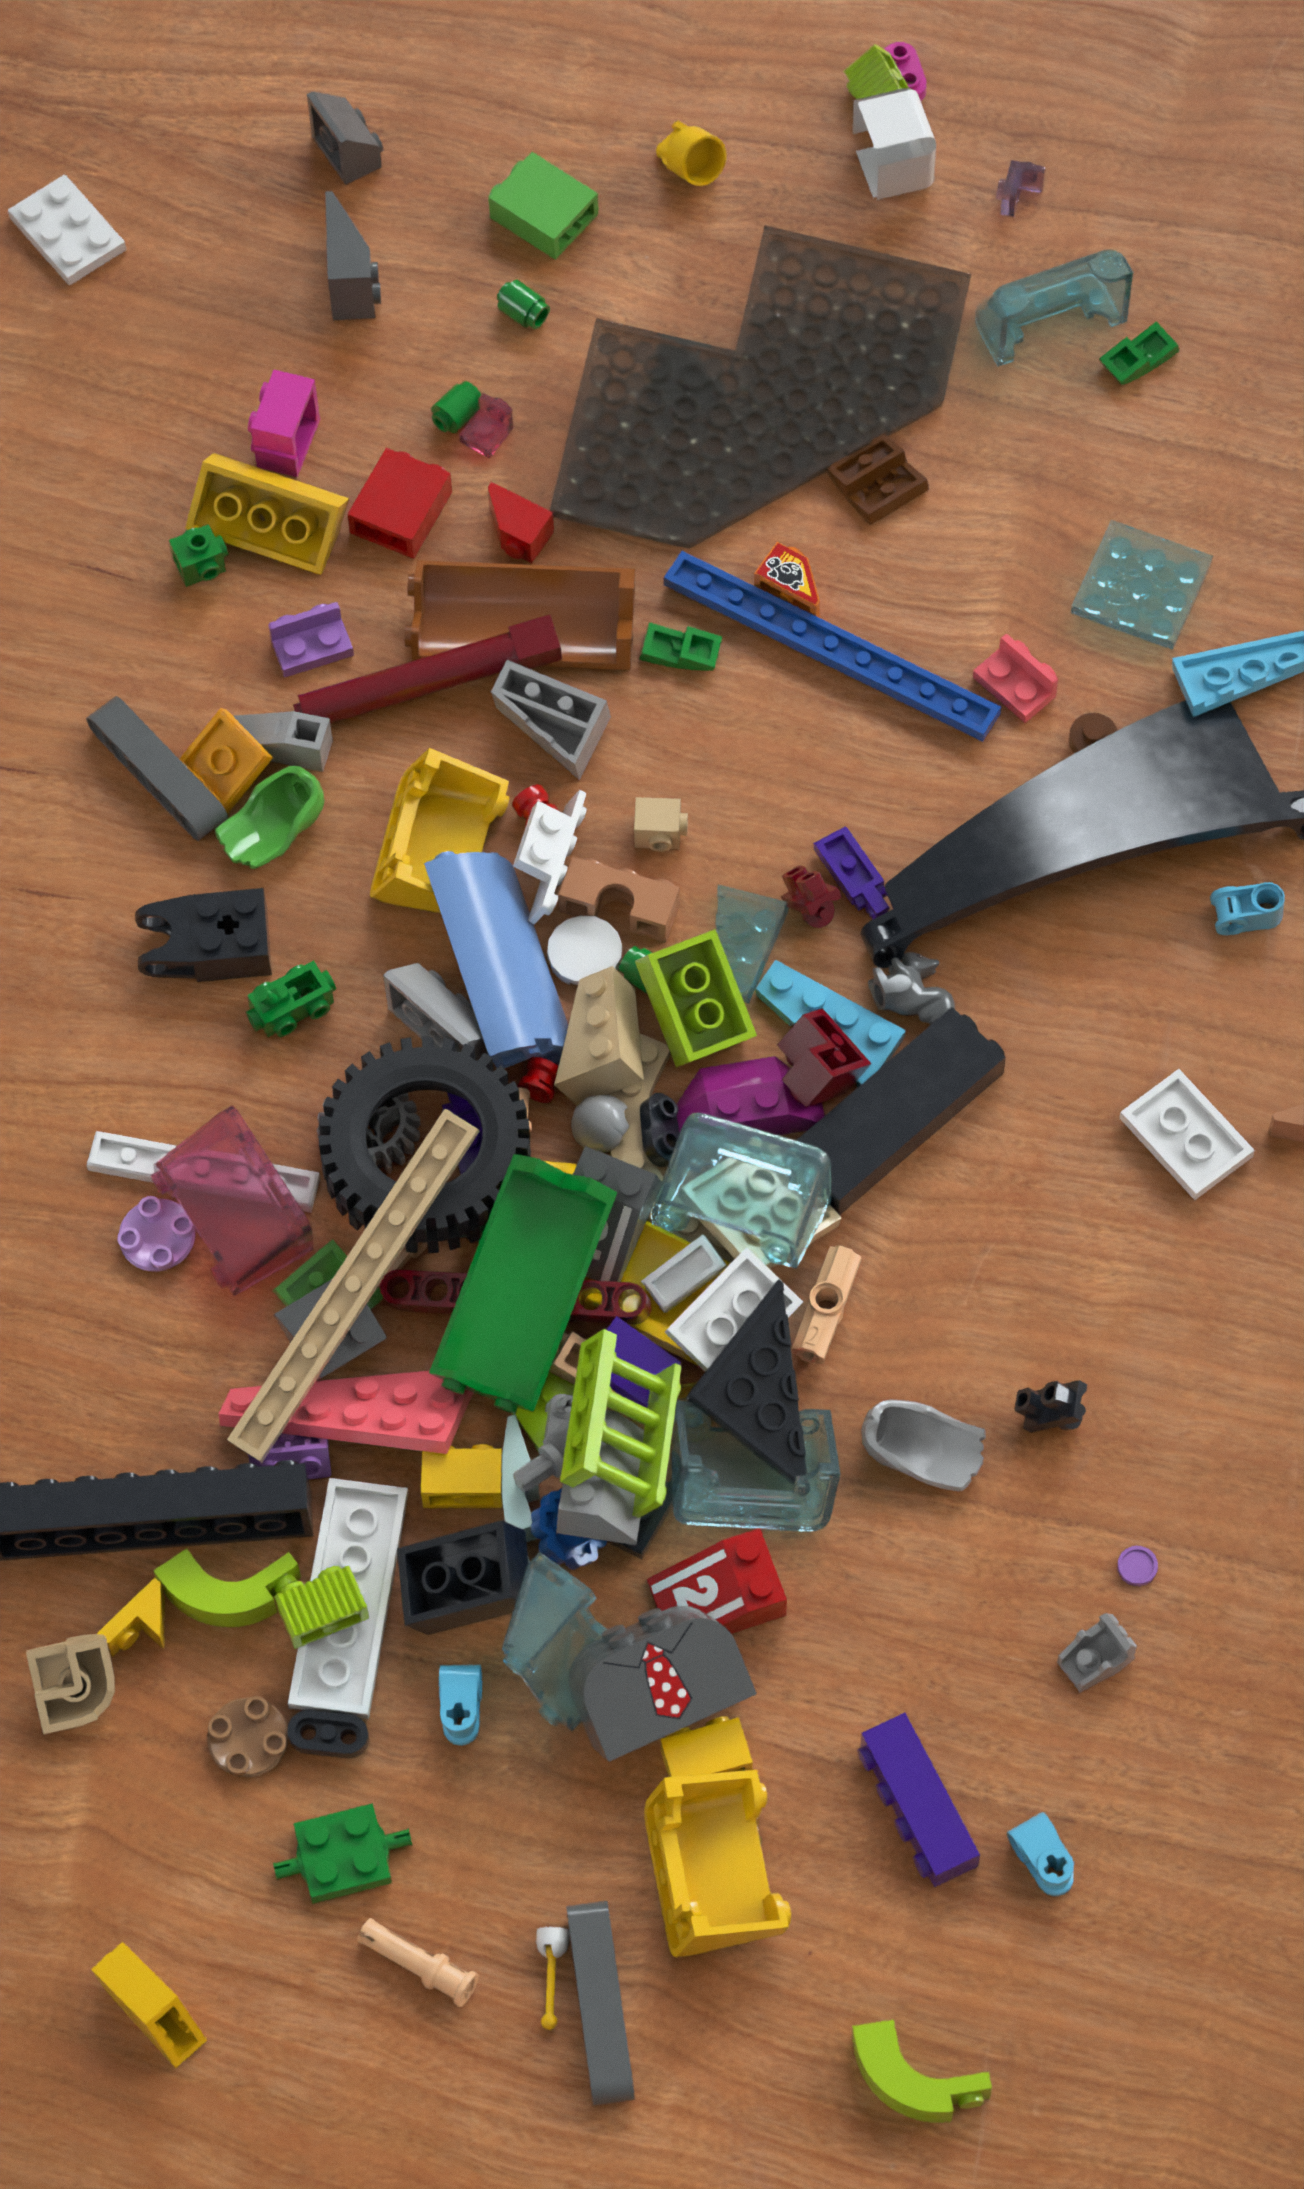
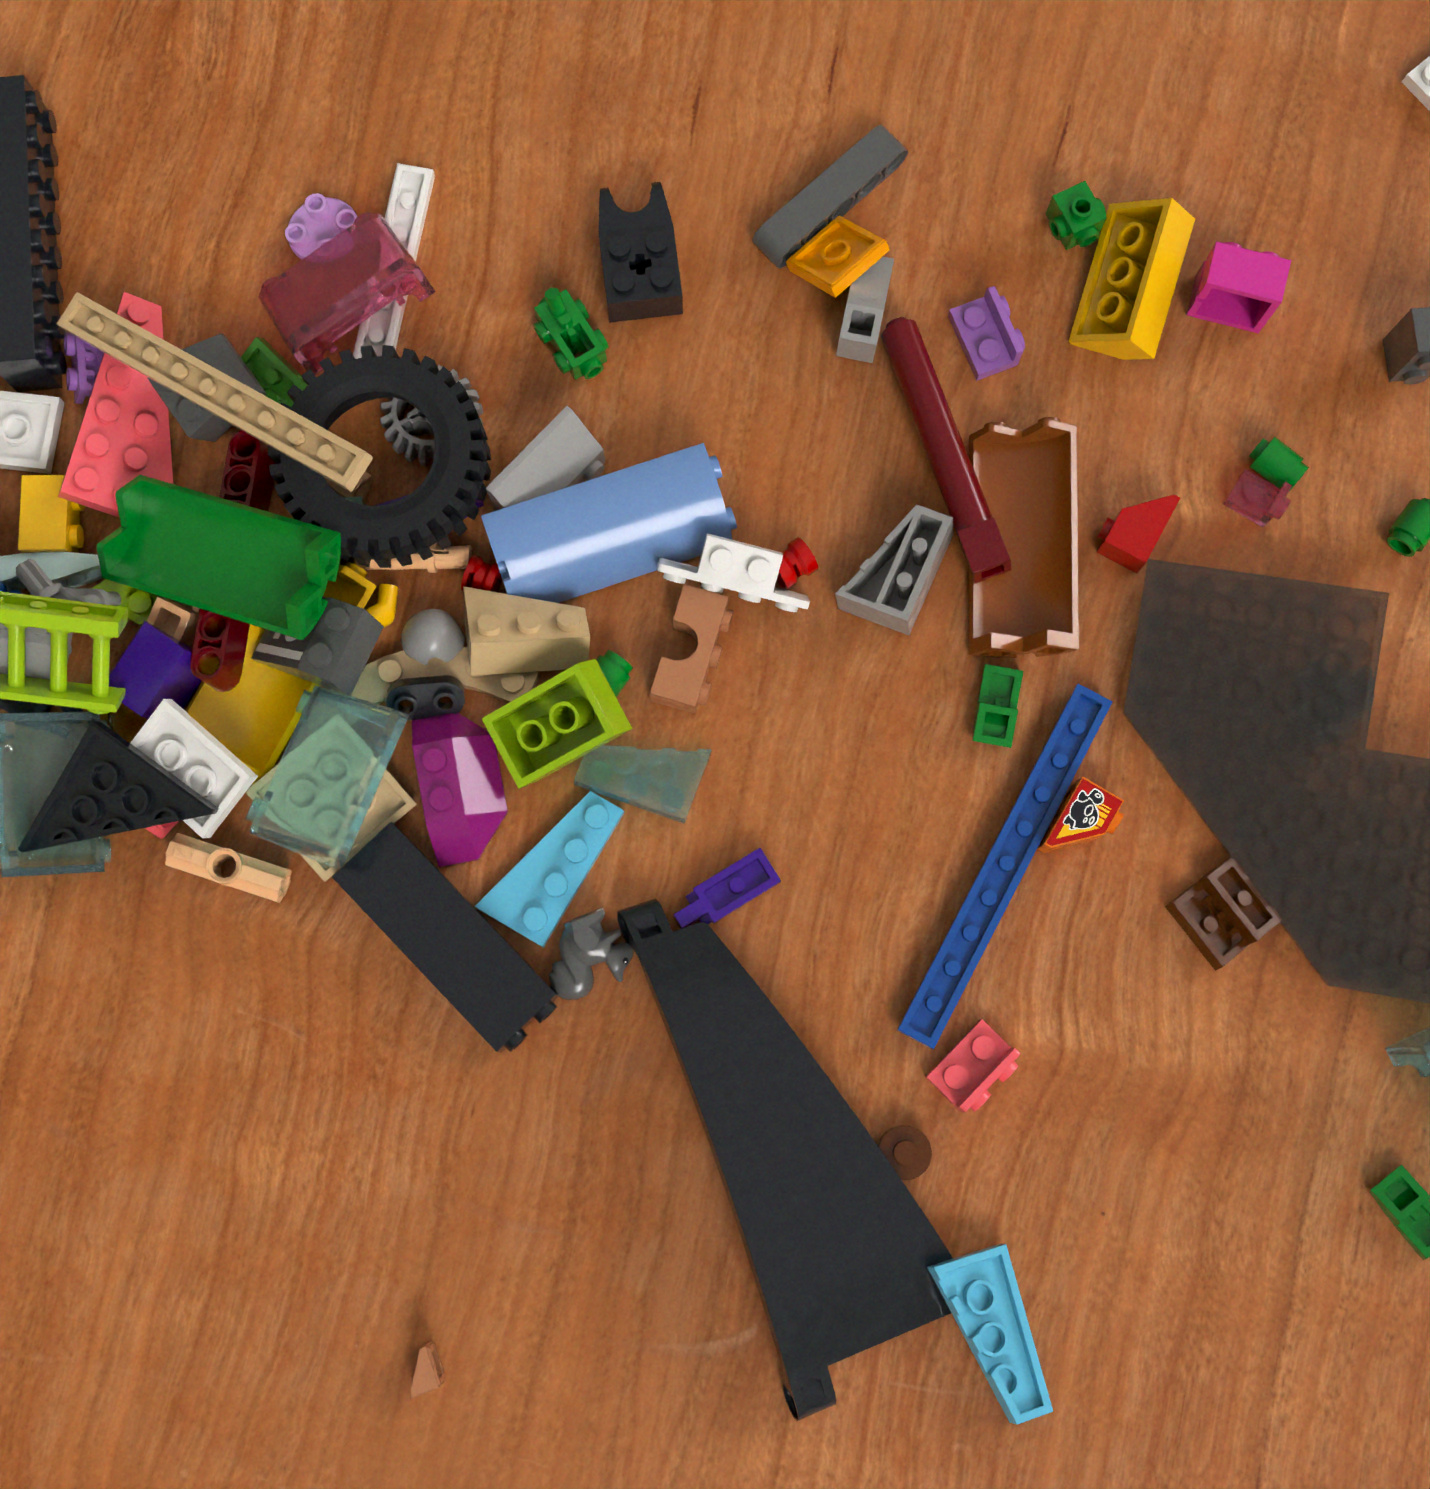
camera: 85 degrees right, 15 degrees up
(272, 817) = (772, 305): bright green hair -> none
(400, 502) = (1157, 412): red brick -> none
(435, 810) = (764, 464): yellow windscreen -> none
(583, 948) = (634, 618): white tile -> none
(659, 823) = (778, 687): tan brick -> none
(684, 1273) = (258, 723): white tile -> none
(810, 896) = (693, 842): dark red hips -> none
(821, 1059) = (492, 863): dark red brick -> none
(923, 1443) = (67, 966): light grey hair -> none
(1052, 1406) = (100, 1100): black hips -> none
(1141, 584) = (1102, 1211): clear light blue plate -> none
(1186, 1134) = (418, 1250): white plate -> none
(1244, 908) = (690, 1320): medium azure piece -> none

